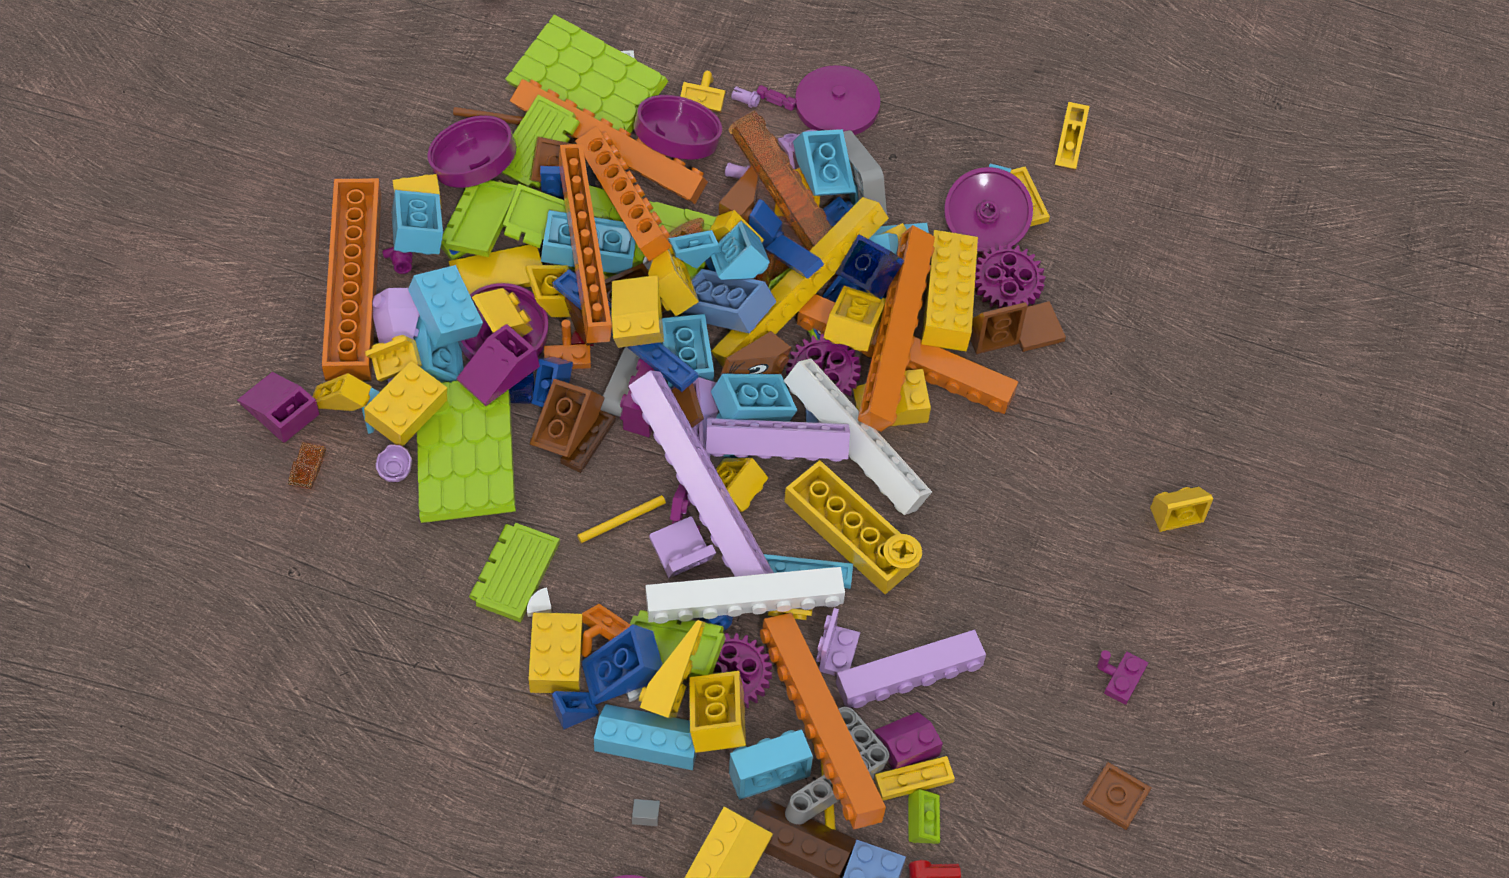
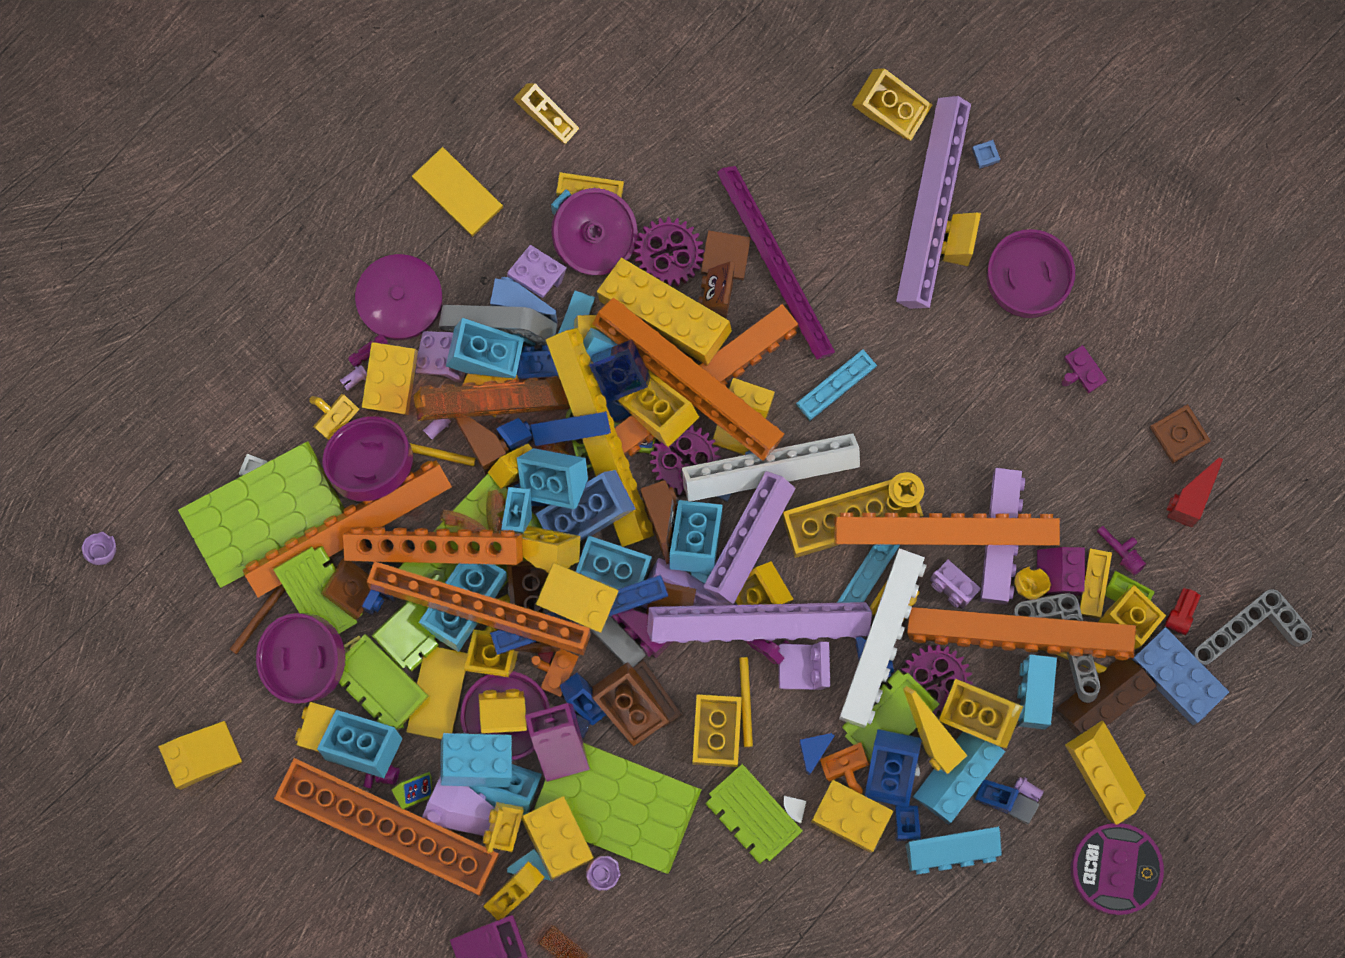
camera: 60 degrees left, 20 degrees up
(348, 120) = (200, 755): none -> yellow slope
(392, 275) = (413, 790): none -> slope
(569, 757) = (954, 849): none -> medium azure slope
(578, 499) = (717, 730): none -> yellow brick
(604, 591) = (813, 749): none -> blue slope
(645, 781) = (997, 796): none -> blue slope
(659, 204) = (453, 518): none -> clear orange slope
(667, 807) = (1028, 789): none -> lavender pin
(713, 179) = (440, 454): none -> yellow bar
(770, 104) = (390, 378): none -> yellow brick
(878, 713) = (1032, 583): none -> yellow hair
(884, 606) = (946, 531): none -> orange brick
(890, 162) = (512, 294): none -> medium blue slope
(902, 826) = (1137, 610): none -> yellow slope
(923, 179) = (537, 271): none -> lavender bracket
(958, 104) = (457, 191): none -> yellow tile
(960, 798) = (1131, 561): none -> magenta piece
(972, 467) = (836, 385): none -> medium azure tile
(1054, 367) = (776, 262): none -> magenta plate
(1062, 827) = (1191, 501): none -> red slope
(1187, 583) = (1030, 273): none -> magenta piece
(1199, 468) = (933, 202): none -> lavender brick
(1269, 397) = (892, 103): none -> yellow slope
(1277, 496) = (986, 154): none -> medium blue plate

